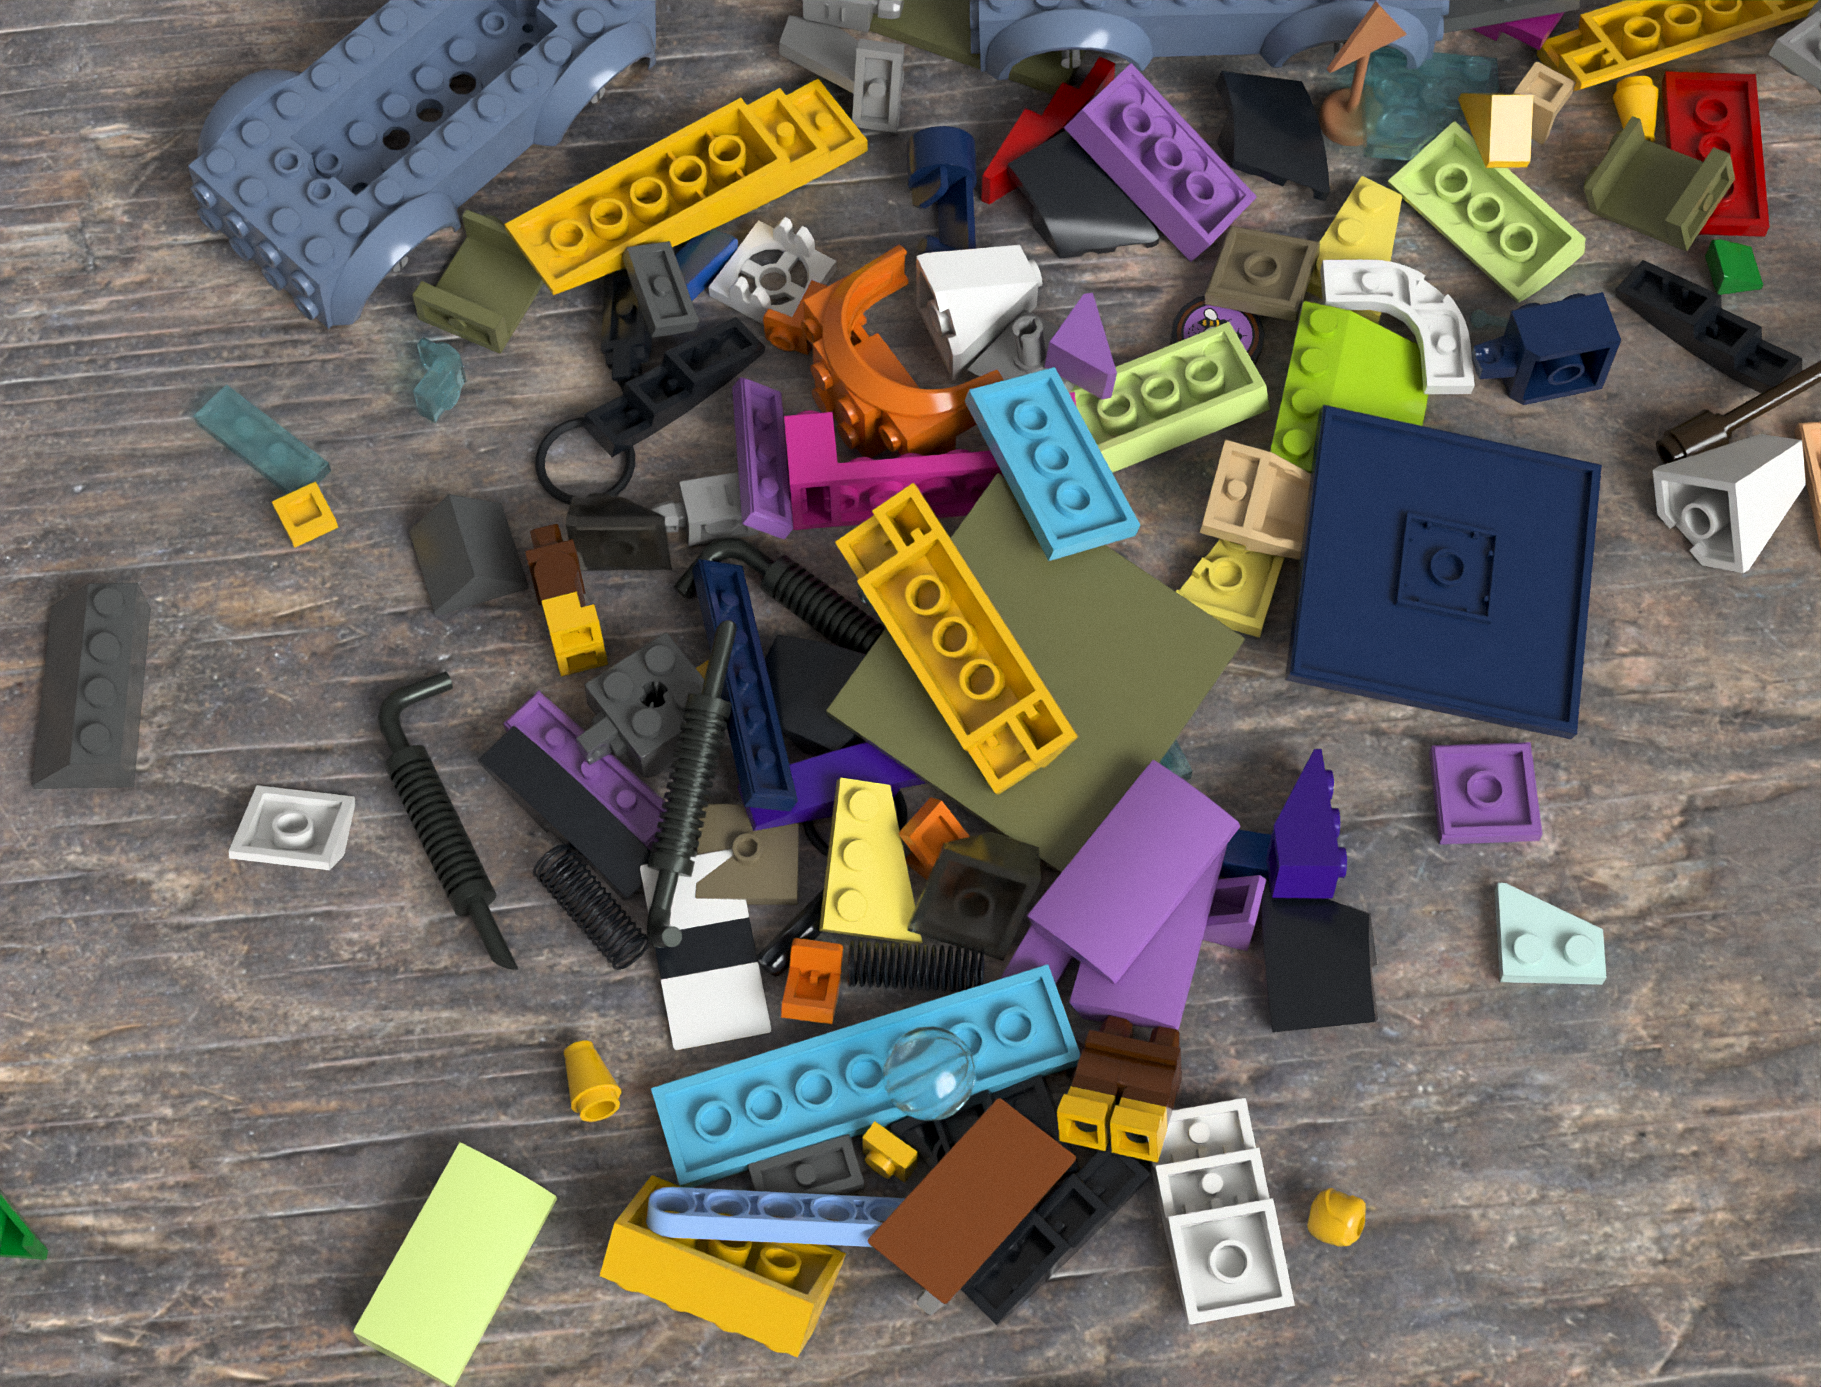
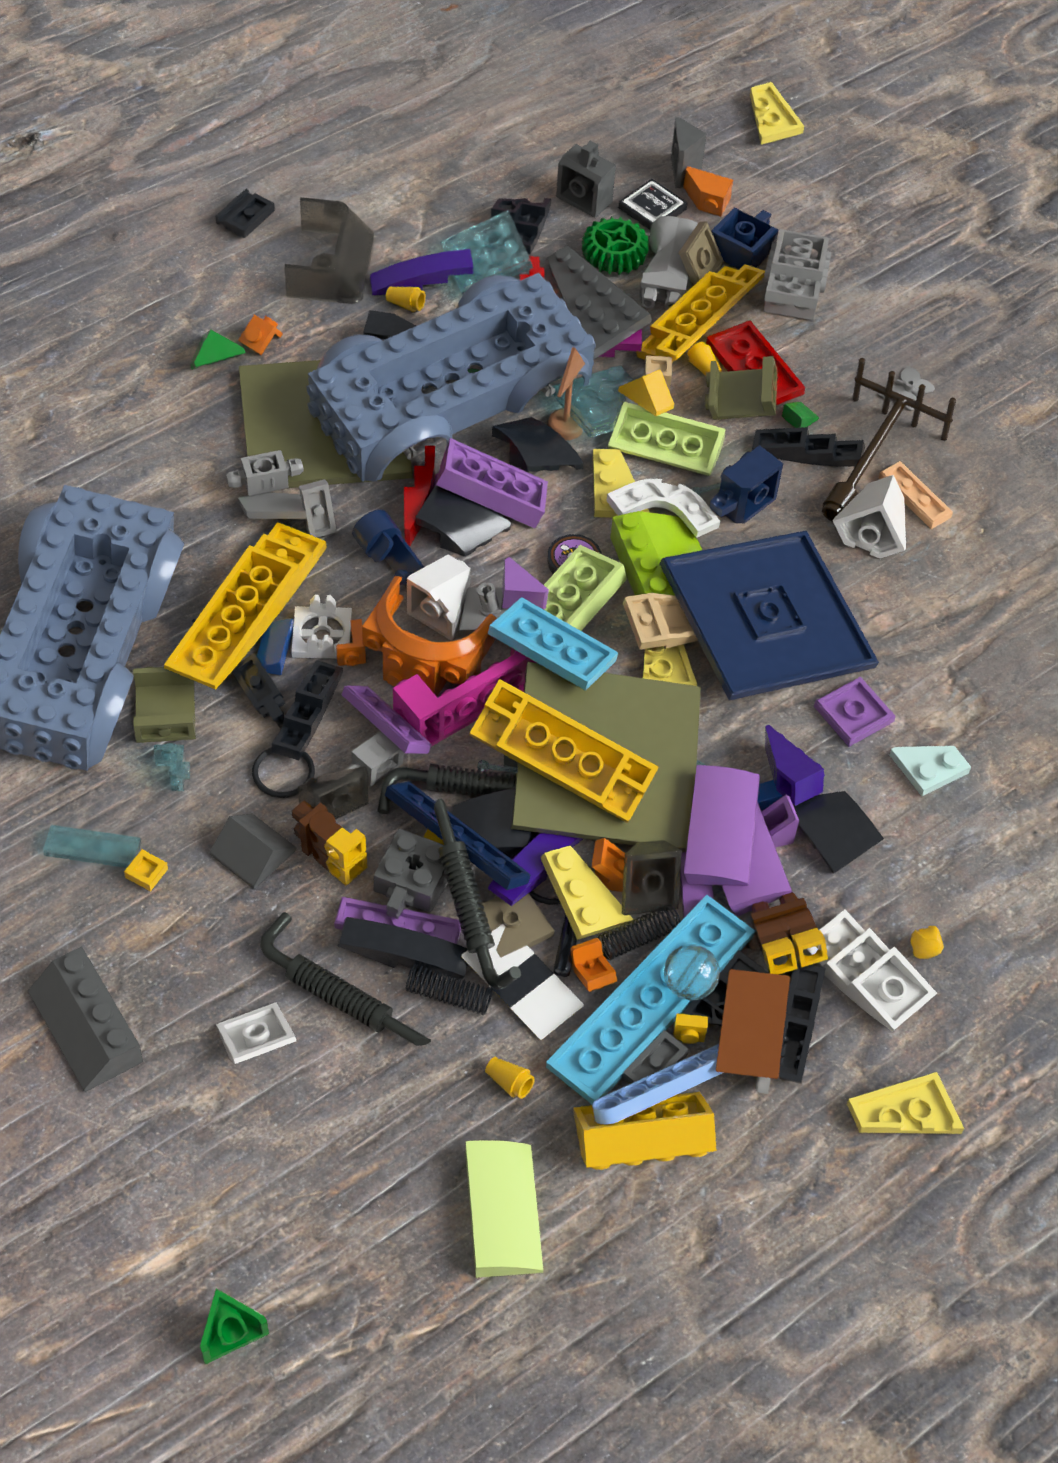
camera: 35 degrees left, 10 degrees down
(660, 289) = (272, 660): dark grey plate -> none
(1262, 273) = (578, 515): dark tan tile -> none

